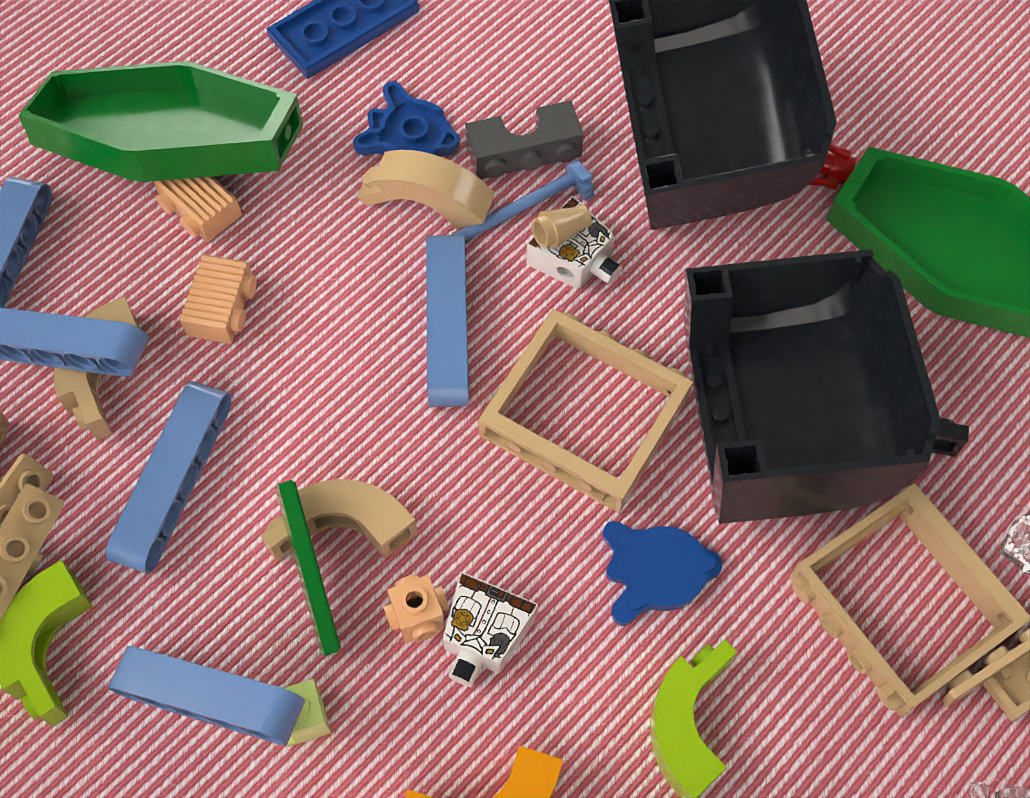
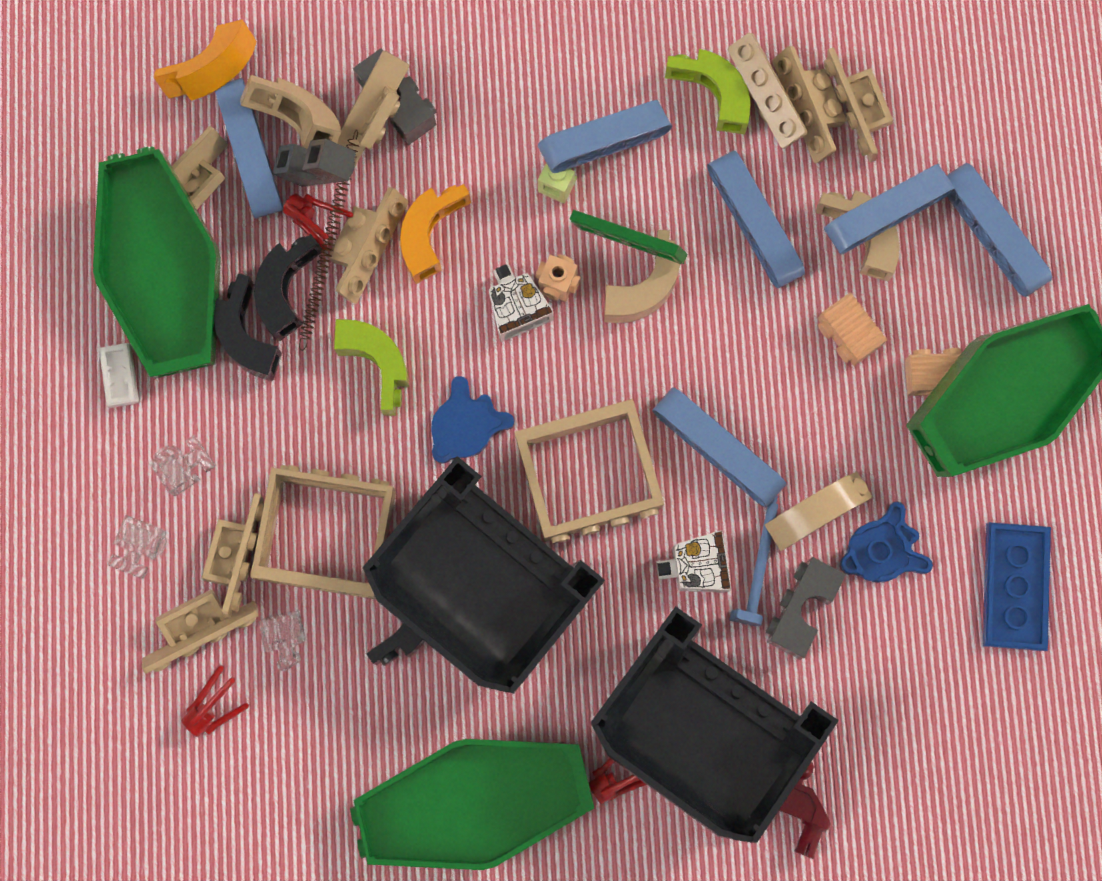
camera: 135 degrees right, 15 degrees up
(558, 225) = (711, 555): tan cone -> none

